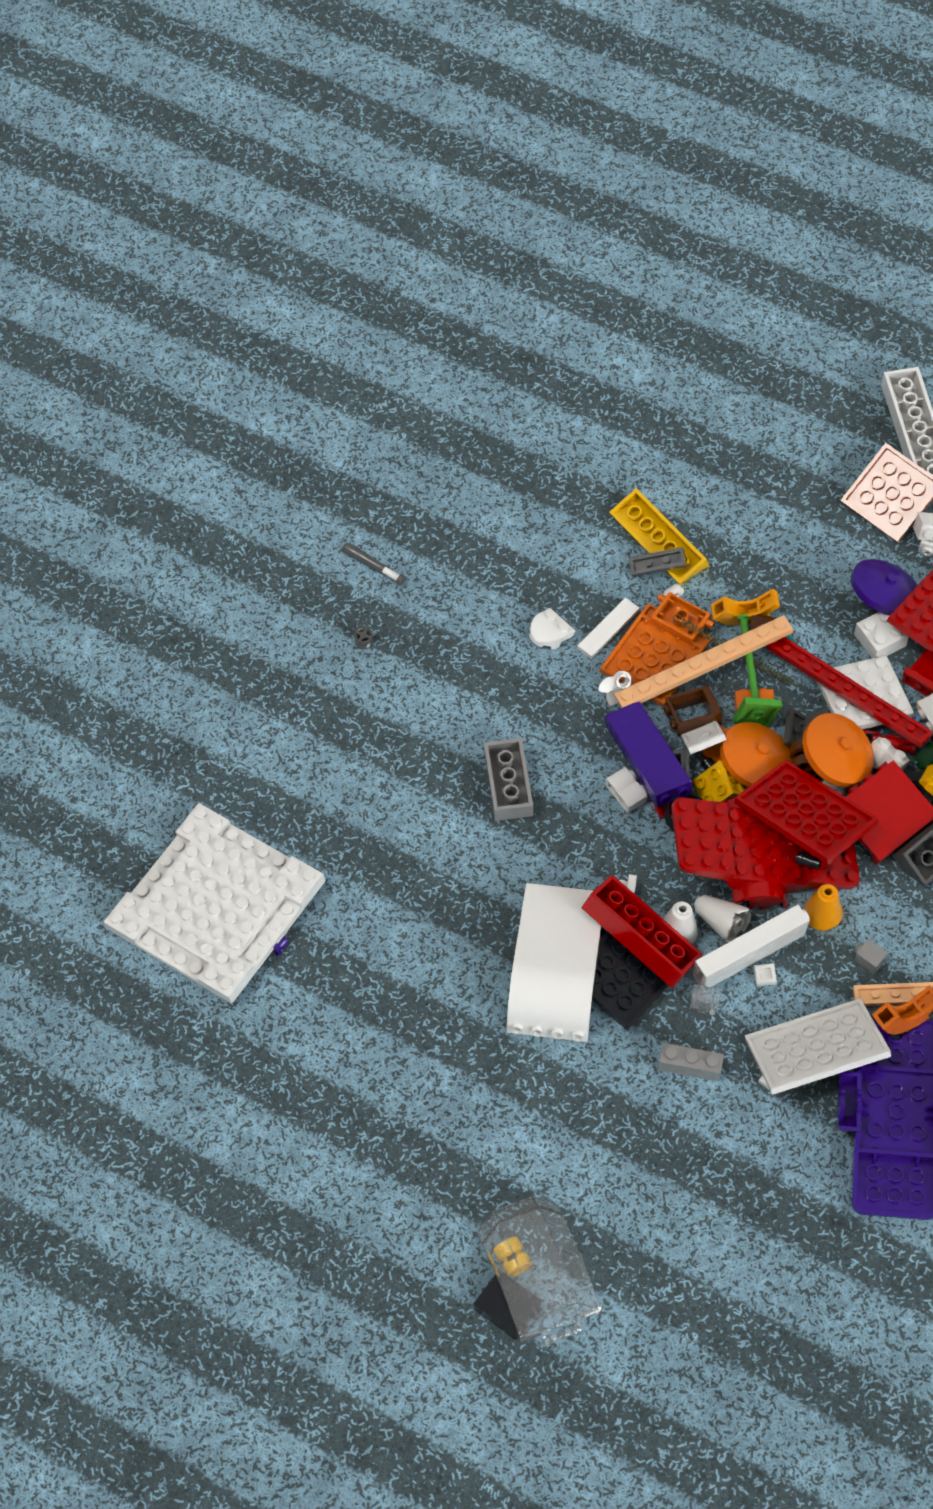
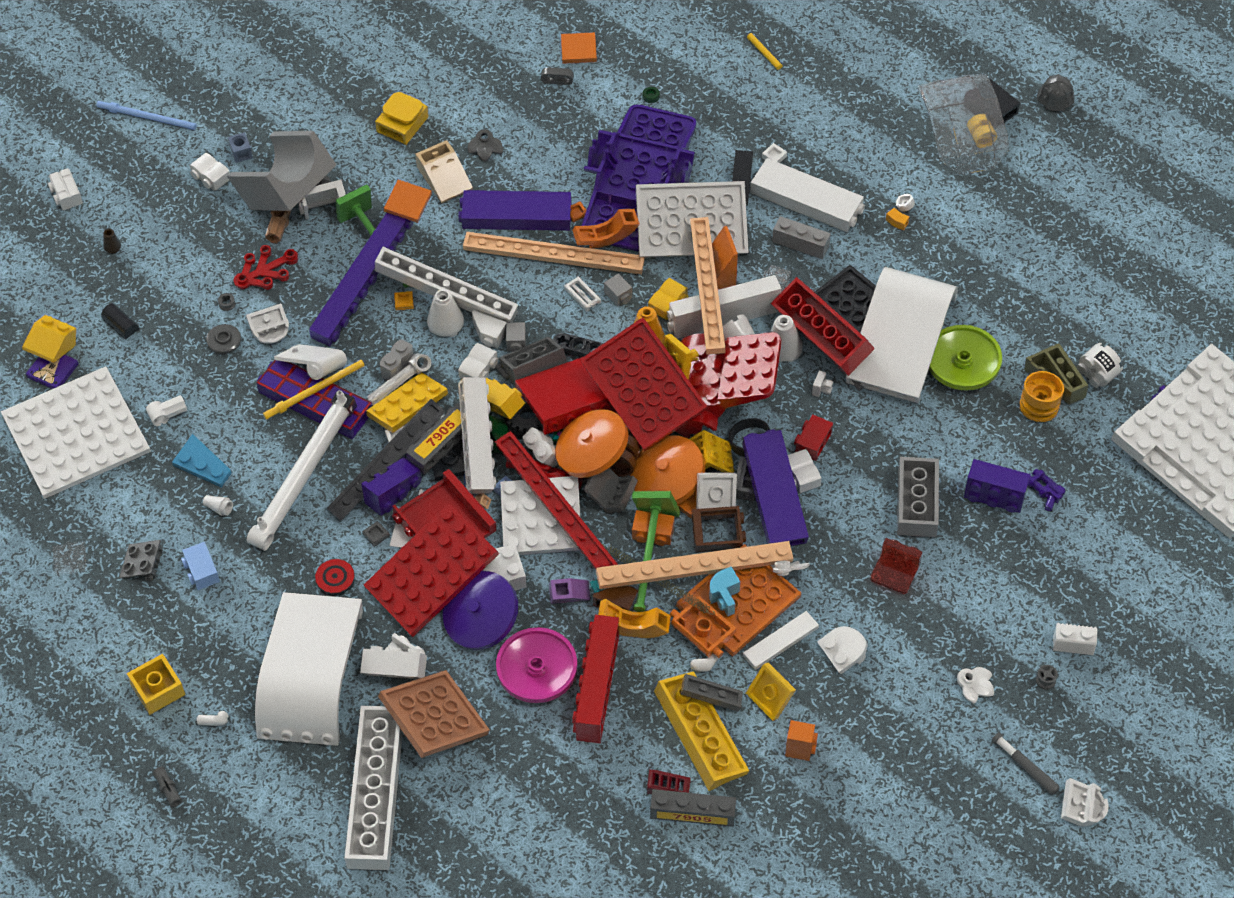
camera: 170 degrees left, 5 degrees down
(320, 538) = (1083, 803): none -> white slope
(341, 673) = (1075, 639): none -> white brick
(344, 957) = (1100, 365): none -> white brick
(378, 821) = (1051, 491): none -> dark purple piece
(386, 943) = (1057, 362): none -> olive wedge
(399, 898) = (1041, 396): none -> light orange wheel
(424, 623) = (977, 685): none -> white plate
(430, 1336) = (1056, 93): none -> dark grey helmet
(433, 800) = (996, 486): none -> dark purple brick
(484, 942) = (966, 358): none -> lime dish
(516, 711) = (896, 566): none -> clear red bracket
(569, 532) = (801, 740): none -> orange brick
(584, 1140) = (905, 202): none -> white tile
(589, 1115) = (897, 219): none -> light orange piece
(604, 572) = (770, 691): none -> yellow tile
(623, 826) = (814, 436): none -> red brick
(648, 469) = (693, 808): none -> dark grey brick
(673, 646) = (722, 587): none -> medium azure brick
(680, 494) = (669, 777): none -> dark red slope
(697, 1124) = (807, 195): none -> white brick
(749, 1177) = (774, 153): none -> white plate
(760, 544) = (596, 679): none -> red brick
(767, 1000) = (725, 259): none -> orange slope
(775, 944) = (707, 286): none -> light nougat plate
(778, 844) = (680, 353): none -> yellow tile
(778, 1133) = (742, 169): none -> black slope
(801, 1341) = (764, 51): none -> yellow bar
(813, 625) = (569, 590): none -> medium lavender slope
(814, 957) = (668, 292): none -> yellow brick
(818, 555) = (536, 665): none -> dark pink dish
(880, 874) = (572, 341): none -> black beam
(904, 957) = (596, 300): none -> white tile
(919, 1242) = (651, 94): none -> dark green tile

